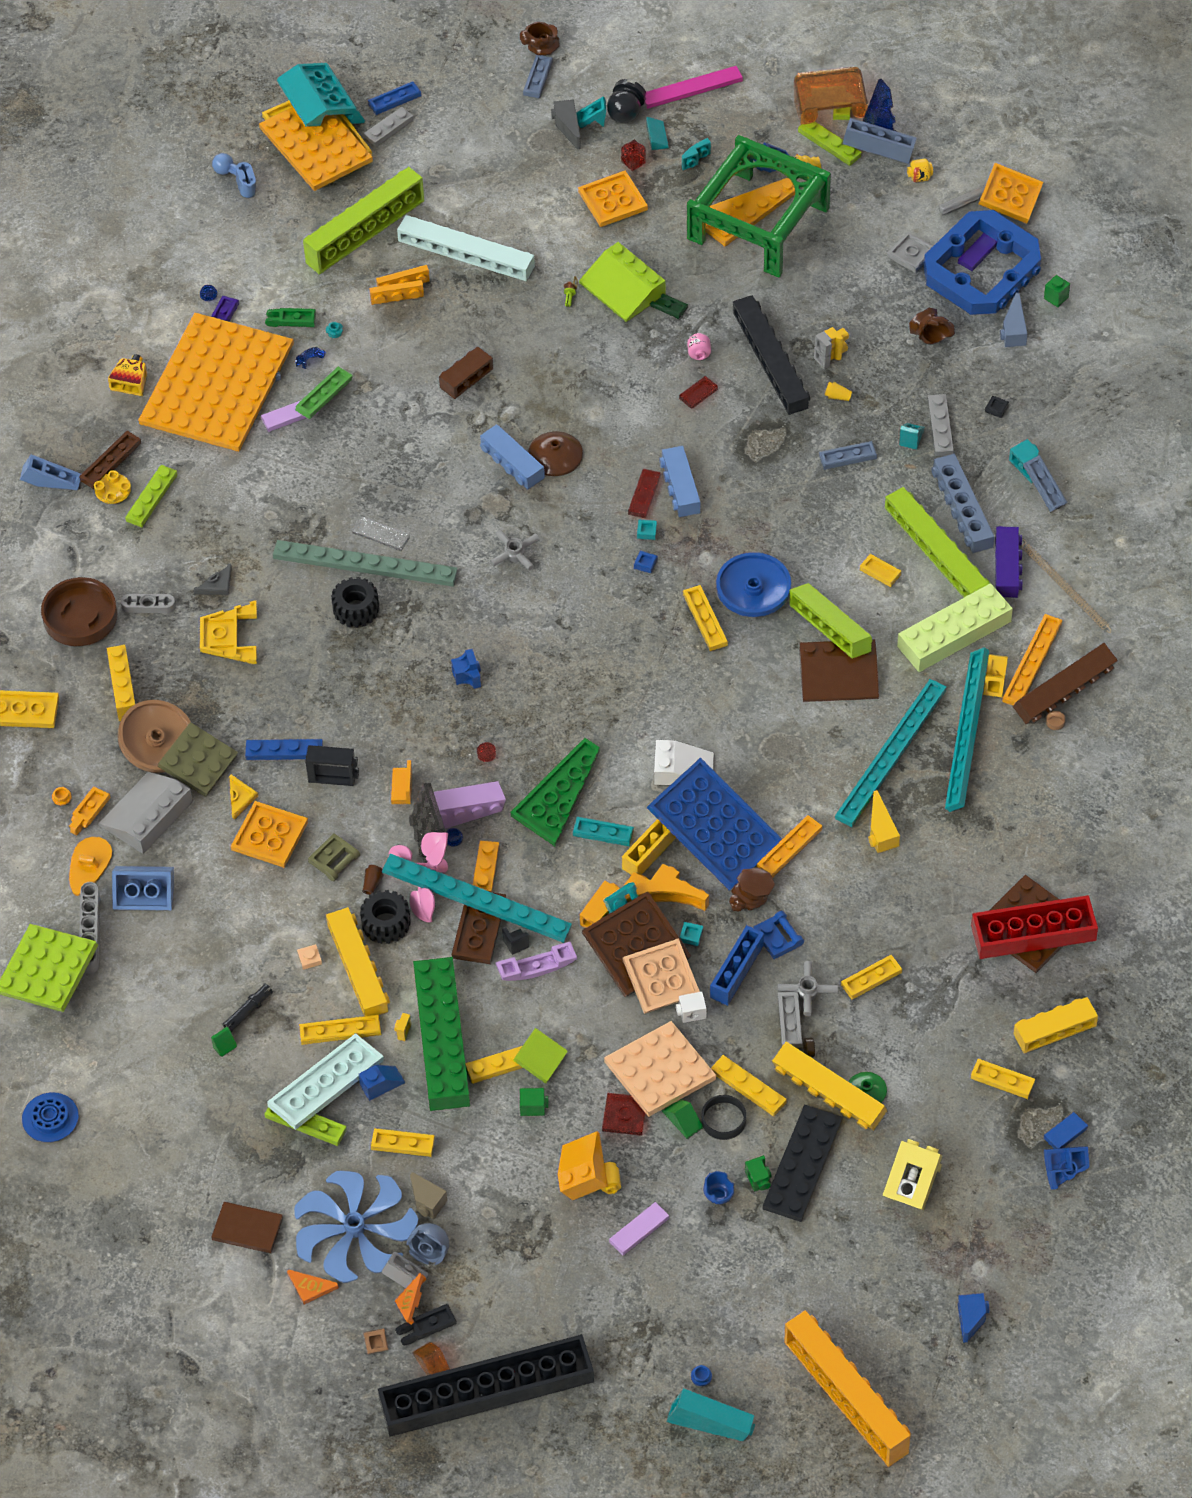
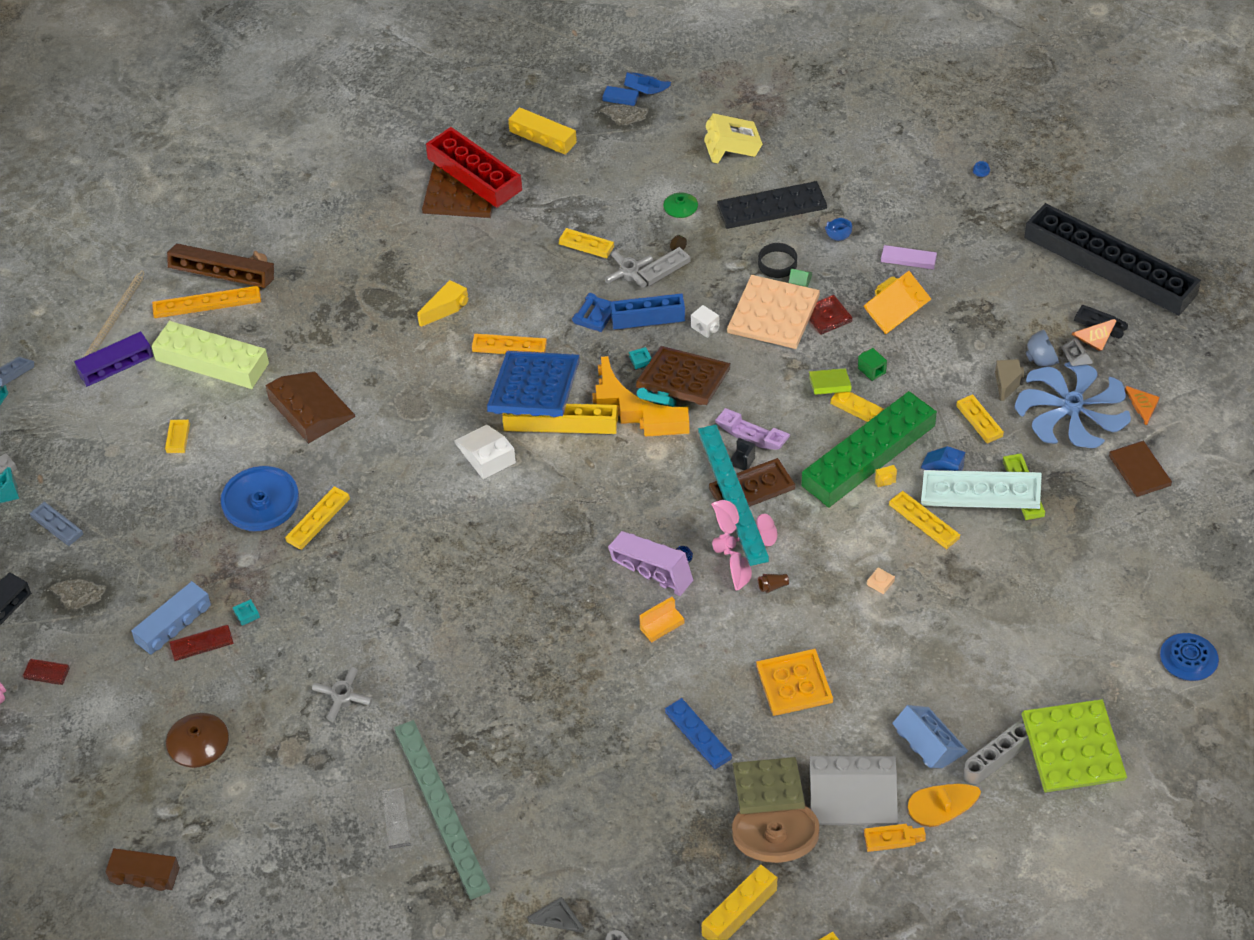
camera: 125 degrees left, 5 degrees down
(61, 796) = (898, 871): light orange plate -> none
(219, 634) = (614, 868): yellow wing -> none
(223, 1042) = (1011, 584): green slope -> none
(241, 796) = (773, 733): yellow tile -> none
(254, 1001) = (966, 587): black pin -> none
(329, 853) = (775, 628): olive plate -> none
(331, 774) = (693, 671): black window -> none
(355, 613) = (498, 789): black tyre -> none
(357, 962) = (858, 541): yellow brick -> none
(375, 1341) = (1139, 344): medium nougat slope -> none
(389, 929) = (801, 557): black tyre -> none
(425, 816) = (696, 557): clear smoke plate -> none
(431, 1358) = (1122, 305): clear orange slope -> none
(466, 669) = (505, 645): blue brick -> none
(486, 752) = (578, 586): clear red tile -> none
(486, 865) = (689, 519): light orange plate -> none
(512, 457) = (228, 764): medium blue brick -> none
(553, 799) = (583, 511): green wing -> none
(603, 831) = (591, 466): teal tile -> none
(645, 562) = (282, 596): blue tile -> none
(660, 975) = (697, 347): light nougat plate -> none
(710, 1416) = (1009, 145): teal slope -> none
(748, 1085) = (738, 263): yellow plate -> none
(751, 890) = (571, 340): reddish brown piece -> none
(758, 1174) = (805, 217): green brick -> none
(829, 1086) = (701, 216): yellow brick -> none
(830, 620) = (268, 416): lime brick -> none
(847, 1388) = (919, 91): light orange brick -> none
(890, 753) = (367, 333): teal plate -> none
(934, 542) = (125, 410): lime brick -> none
(963, 503) = (65, 416): sand blue brick -> none
(967, 729) = (308, 301): teal plate -> none
(972, 1313) = (804, 70): blue slope -> none
(995, 675) = (245, 312): yellow slope -> none
(1002, 1078) = (608, 140): yellow plate -> none

